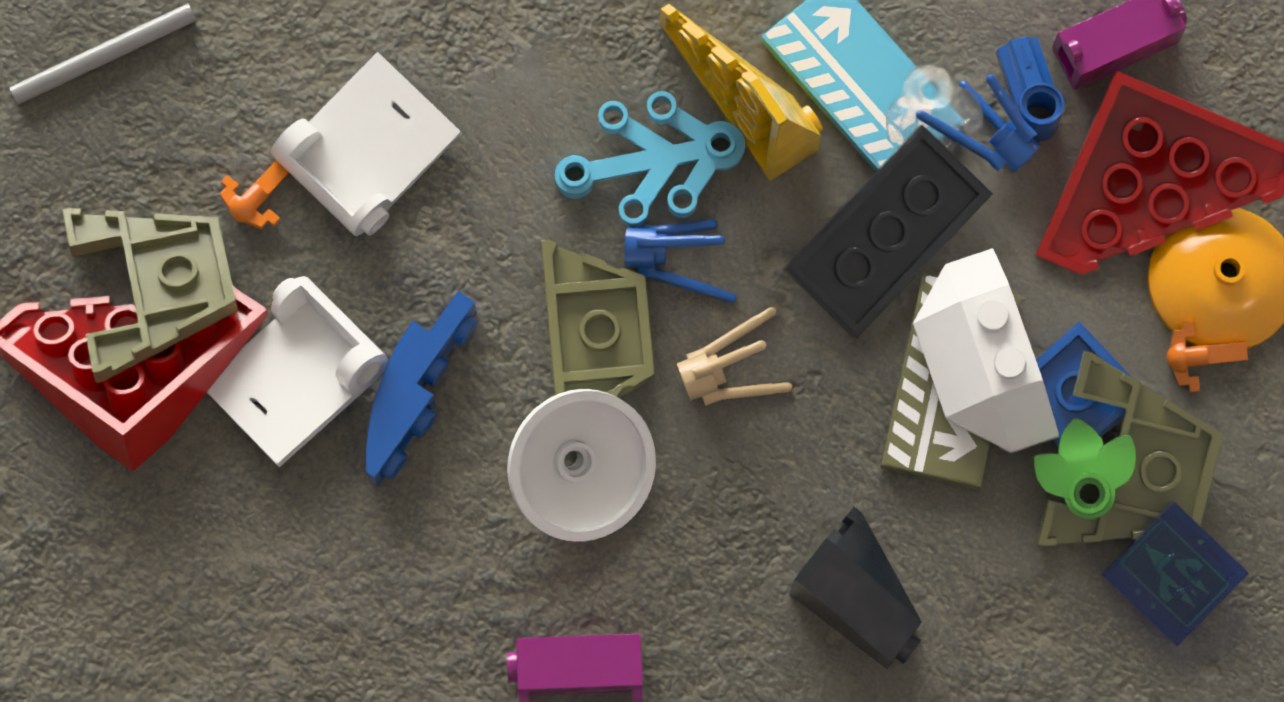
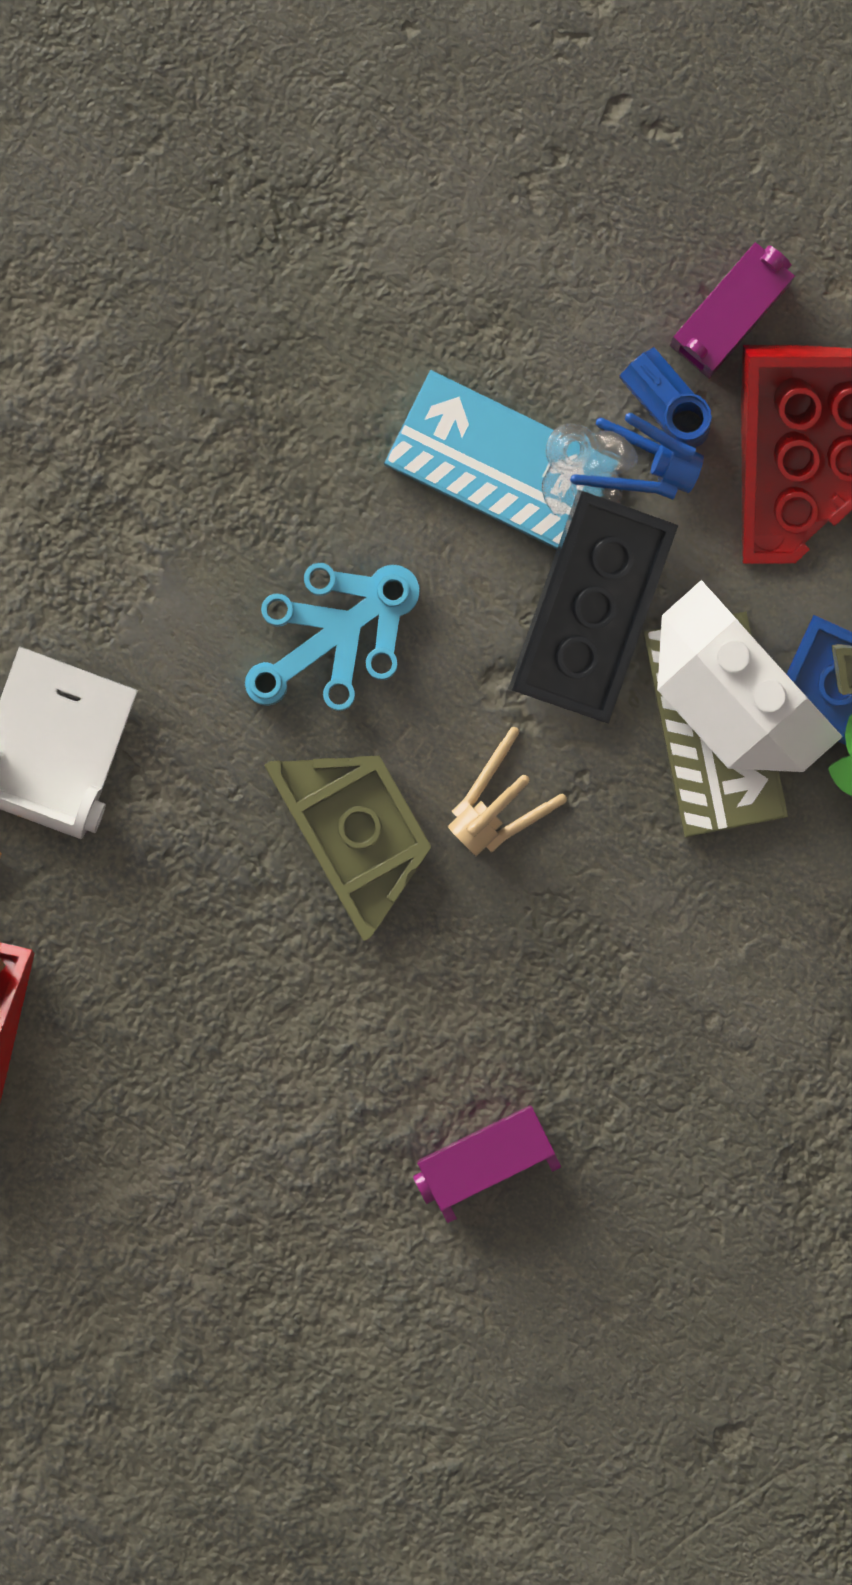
camera: 20 degrees left, 10 degrees up
(298, 370) = (91, 993): white door -> none
(401, 402) = (204, 986): blue slope -> none
(604, 483) = (428, 975): white dish -> none
(649, 246) = (369, 724): blue plant -> none
(767, 115) = (426, 543): yellow slope -> none
(859, 593) = (719, 971): black slope -> none

